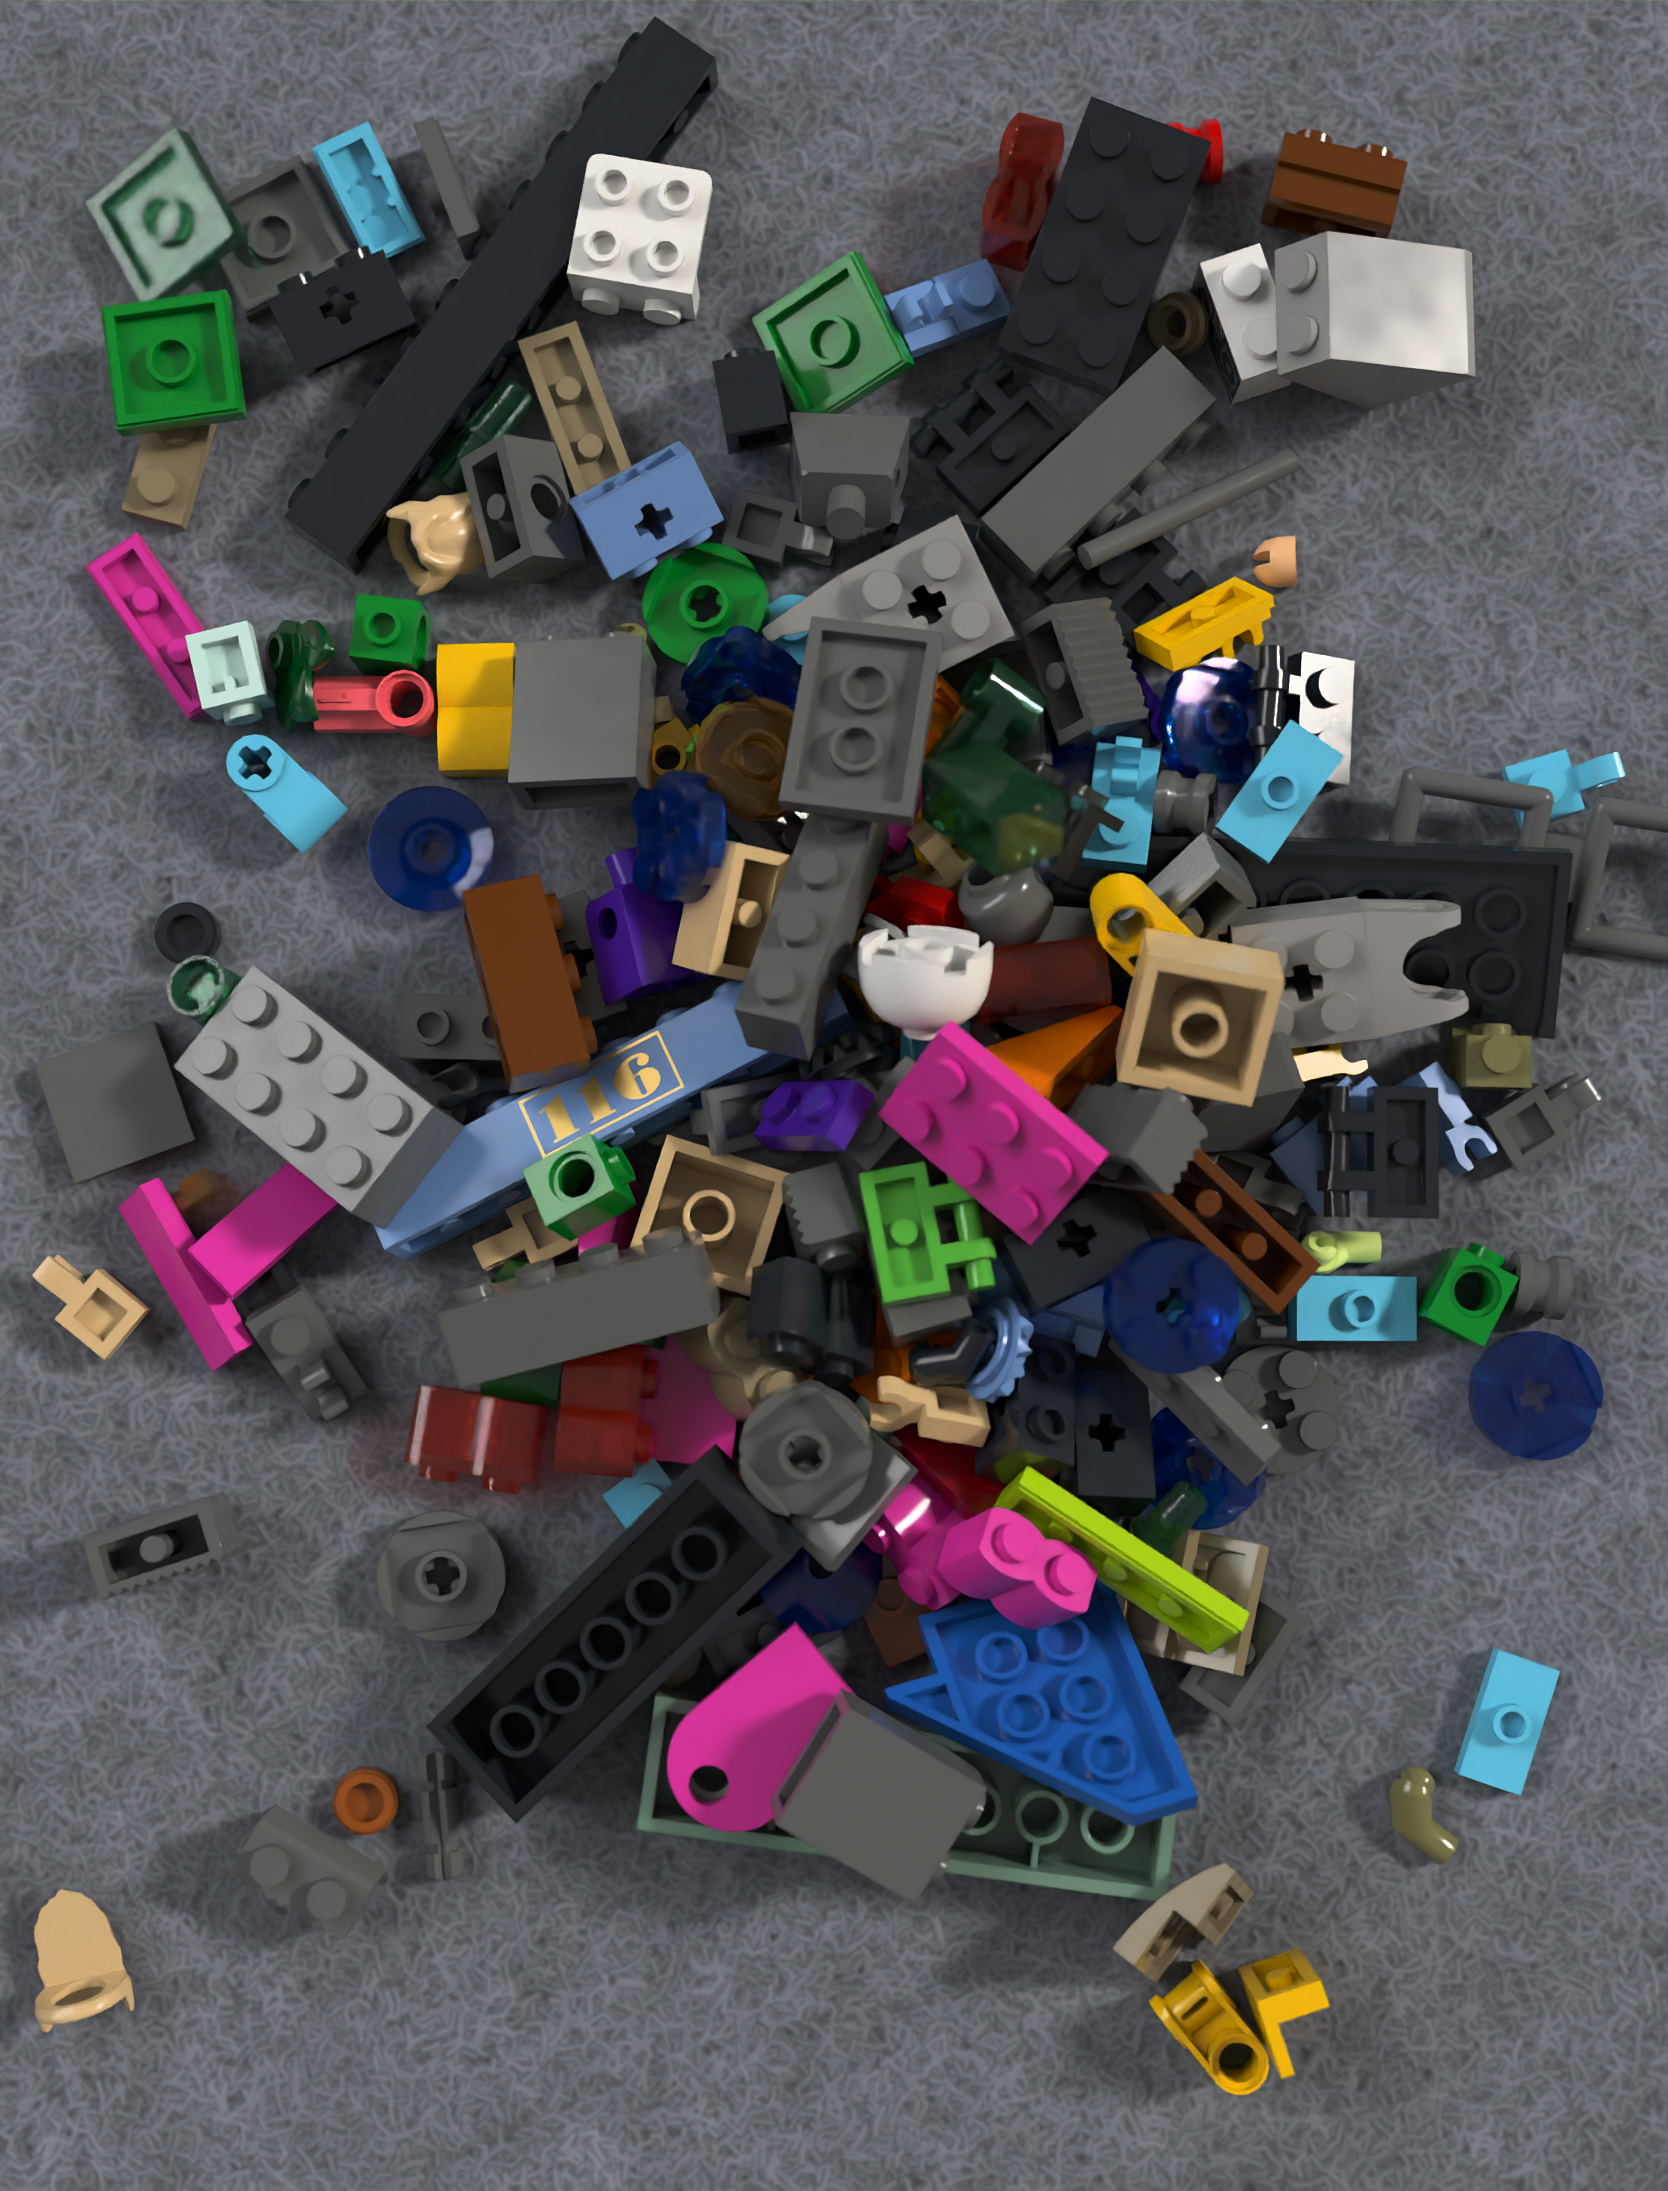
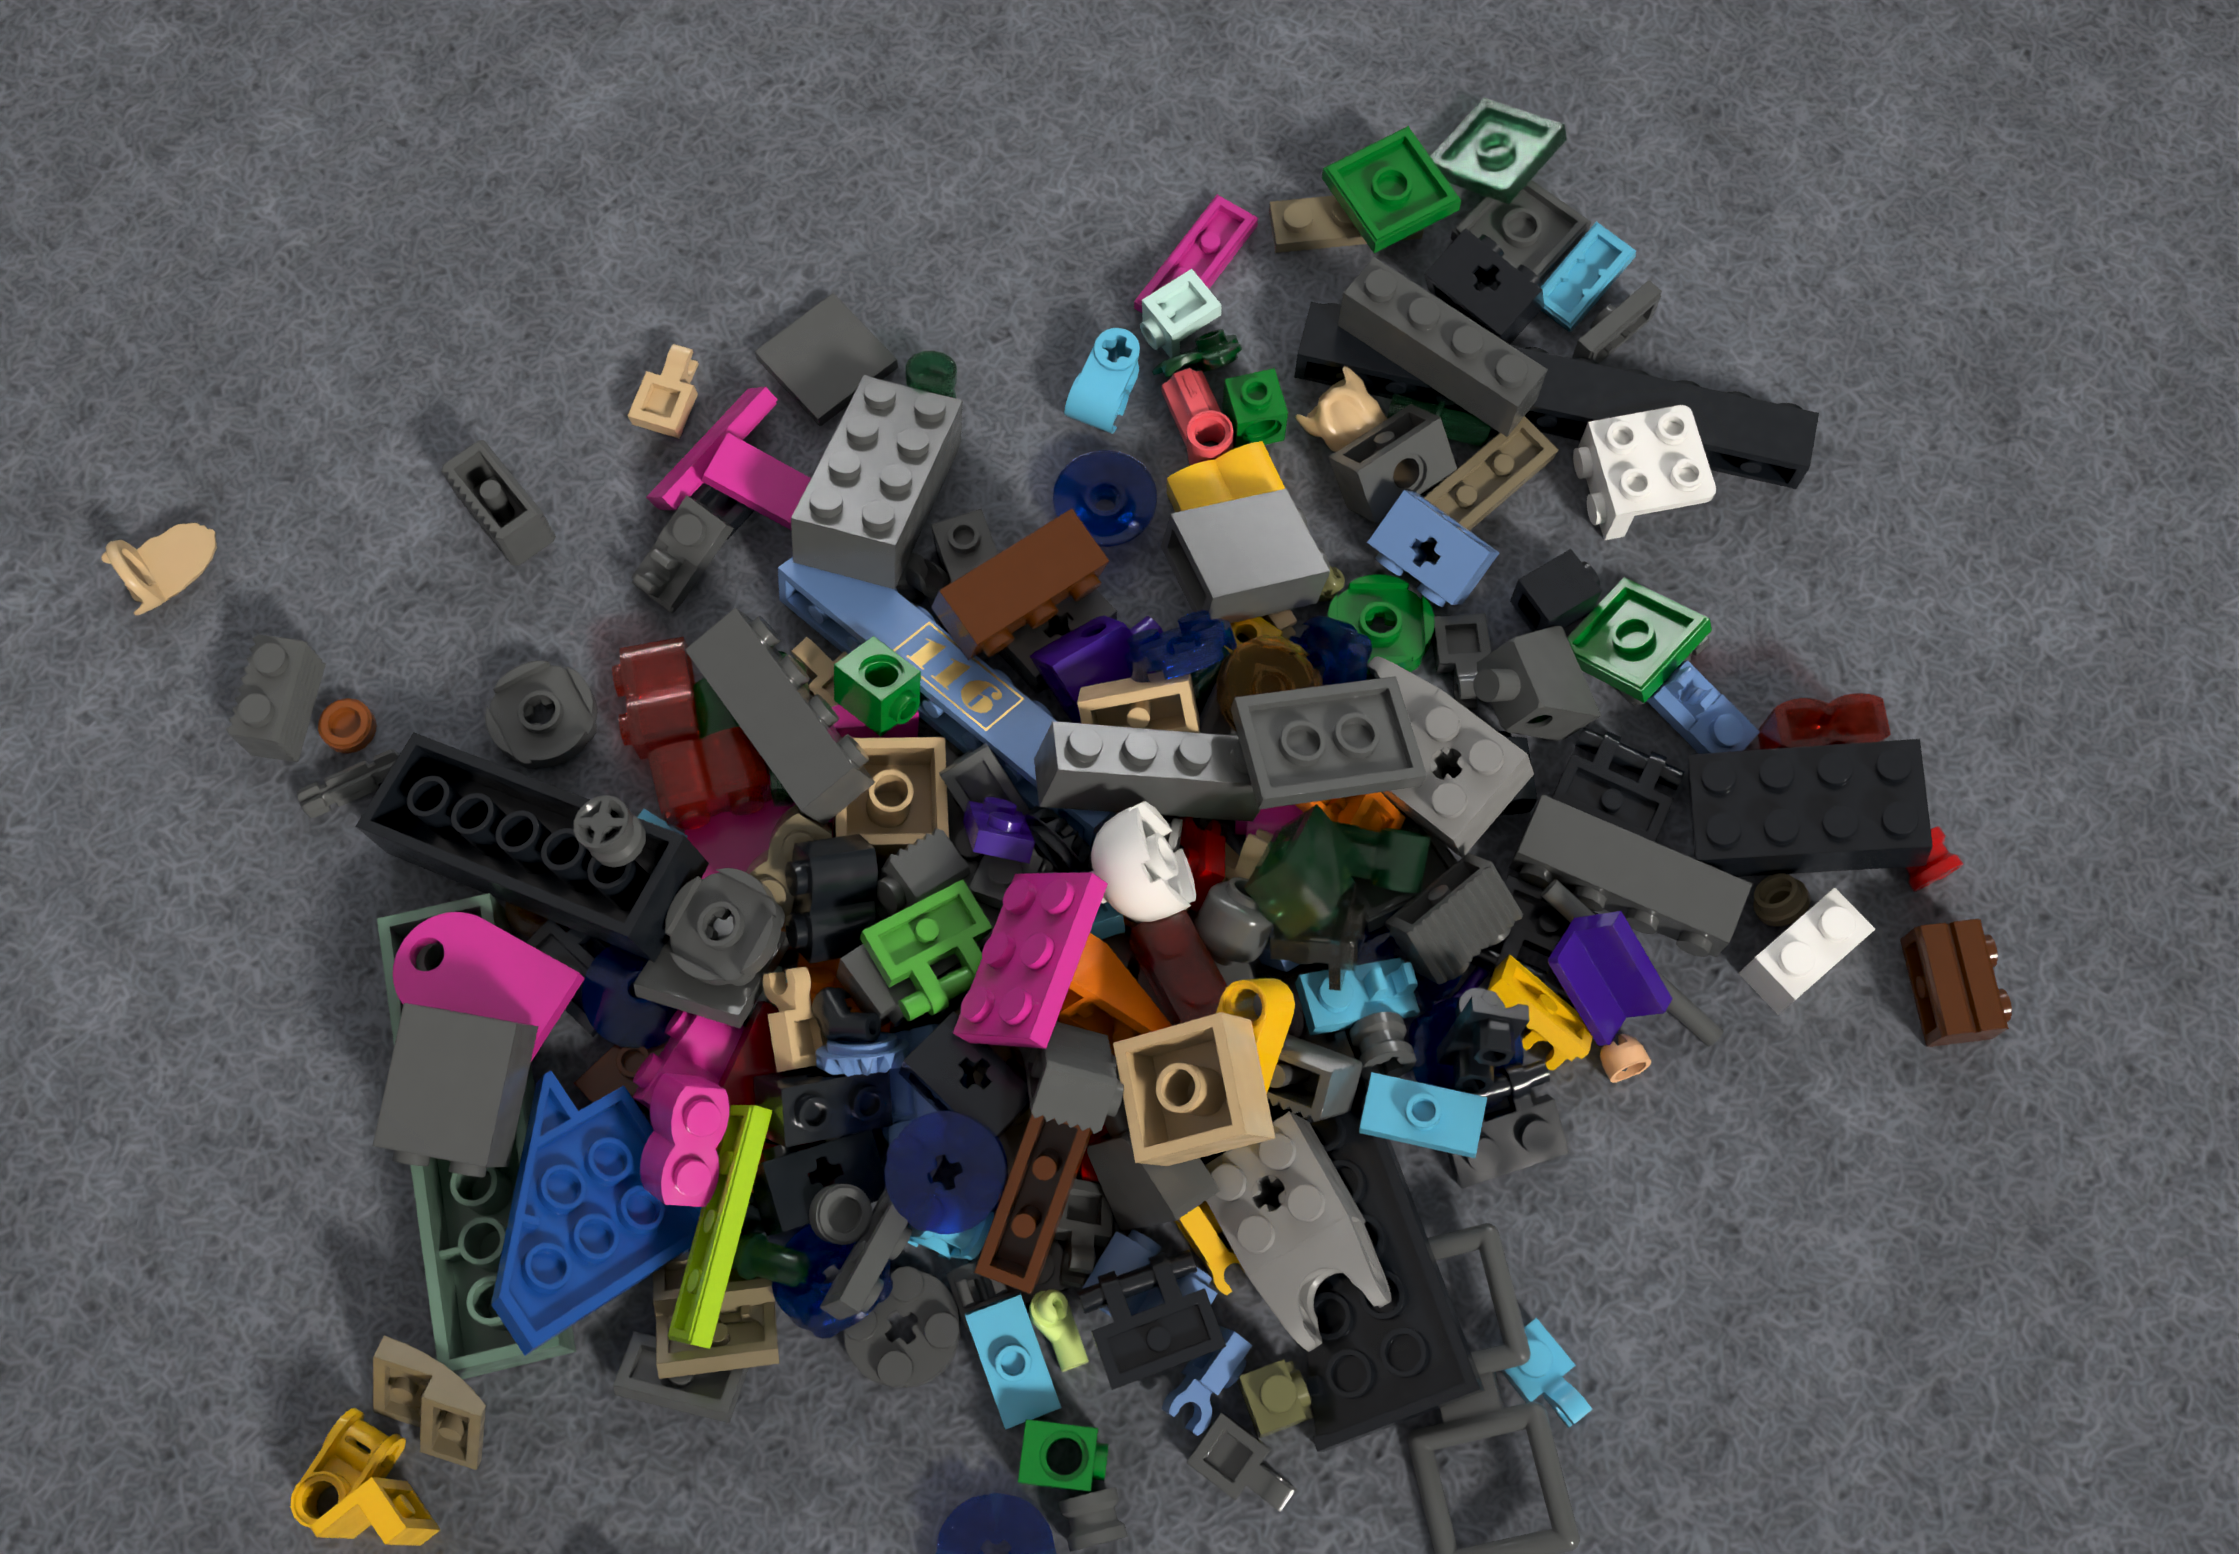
camera: 65 degrees right, 15 degrees down
(187, 931) = (974, 359): black tile -> none
(198, 1190) = (779, 434): clear orange tile -> none
(415, 394) = (1441, 346): none -> dark grey brick
(652, 1551) = (602, 818): none -> dark grey wheel
(1156, 1431) = (840, 1214): none -> dark grey tile
(1193, 539) = (1607, 974): none -> dark purple panel
(1230, 697) = (1481, 1038): none -> black hips
(1373, 317) = (1859, 1042): light grey slope -> none

